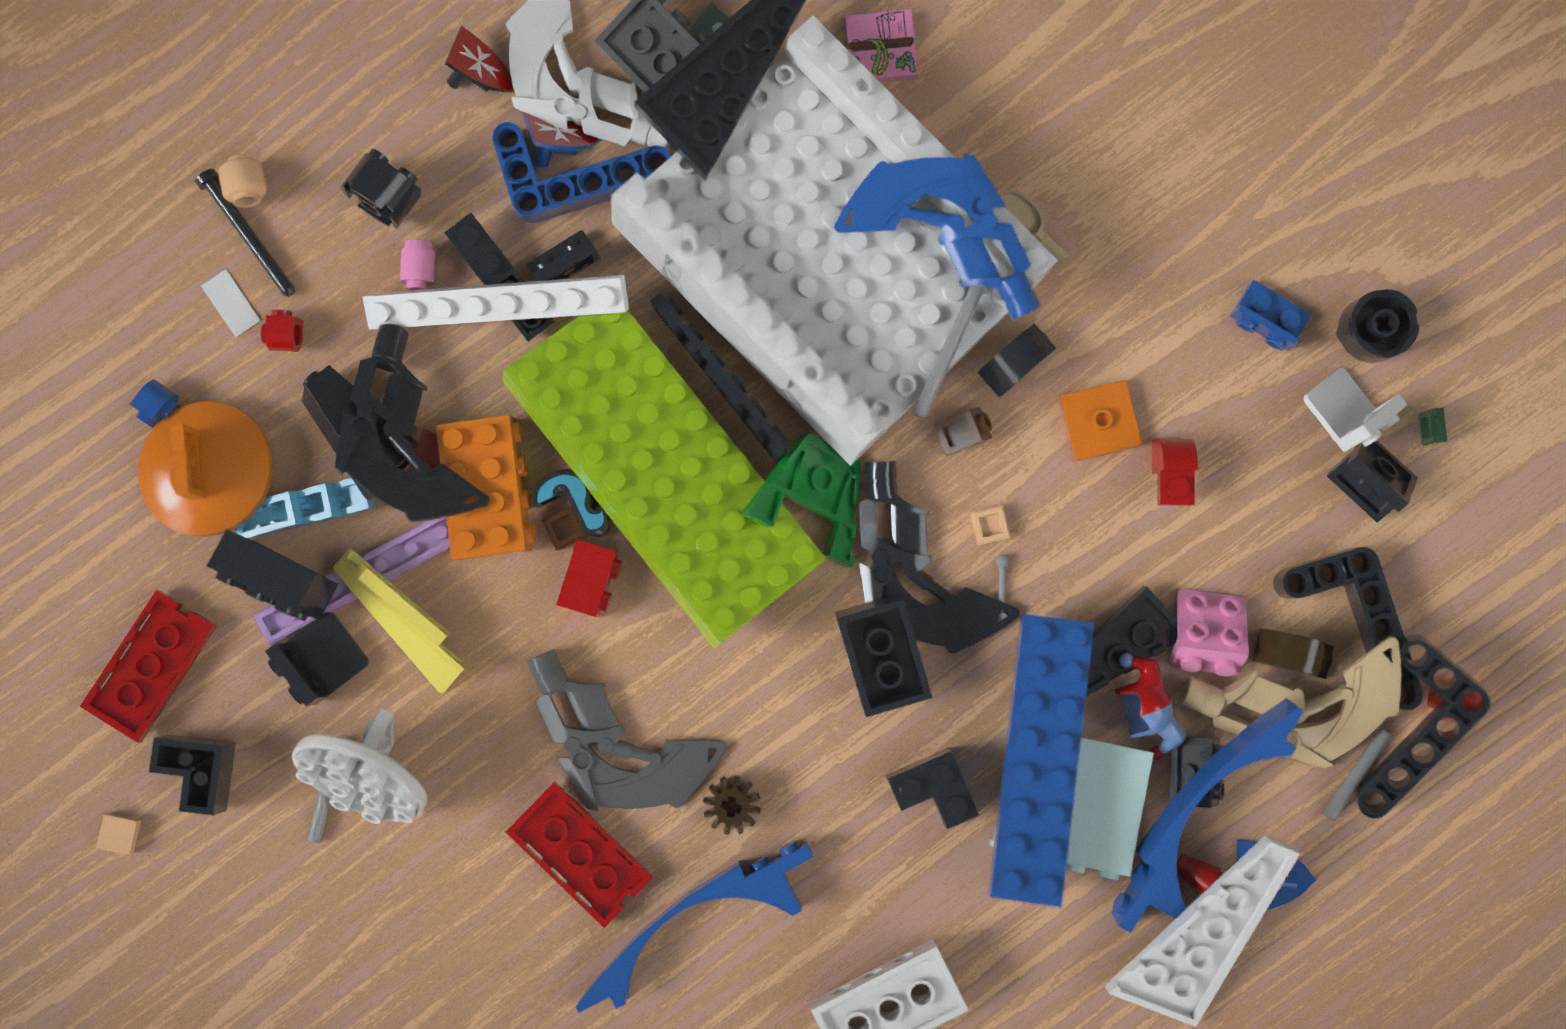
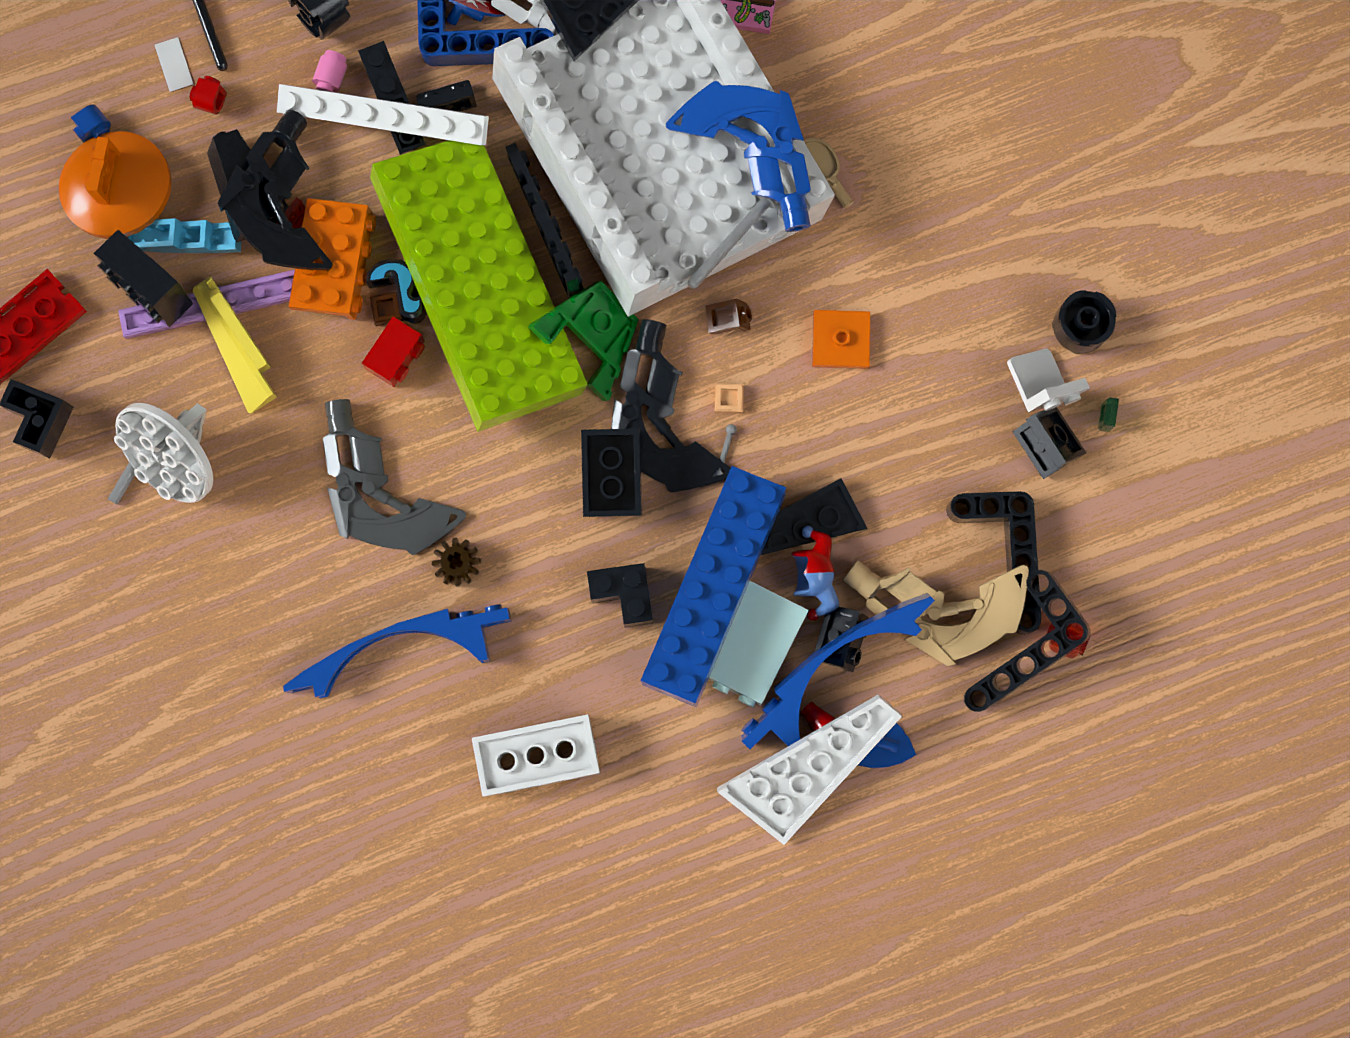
camera: 10 degrees right, 5 degrees down
(317, 660) = (159, 358): black bracket -> none
(579, 854) = (321, 568): red piece -> none
(1016, 359) = (785, 270): black brick -> none
(1175, 466) = (888, 392): red brick -> none
(1210, 633) = (882, 531): bright pink bracket -> none
(1270, 316) = (1001, 293): blue bracket -> none
(1293, 653) = (946, 562): dark brown brick -> none
(1357, 774) = (973, 677): light grey bar -> none

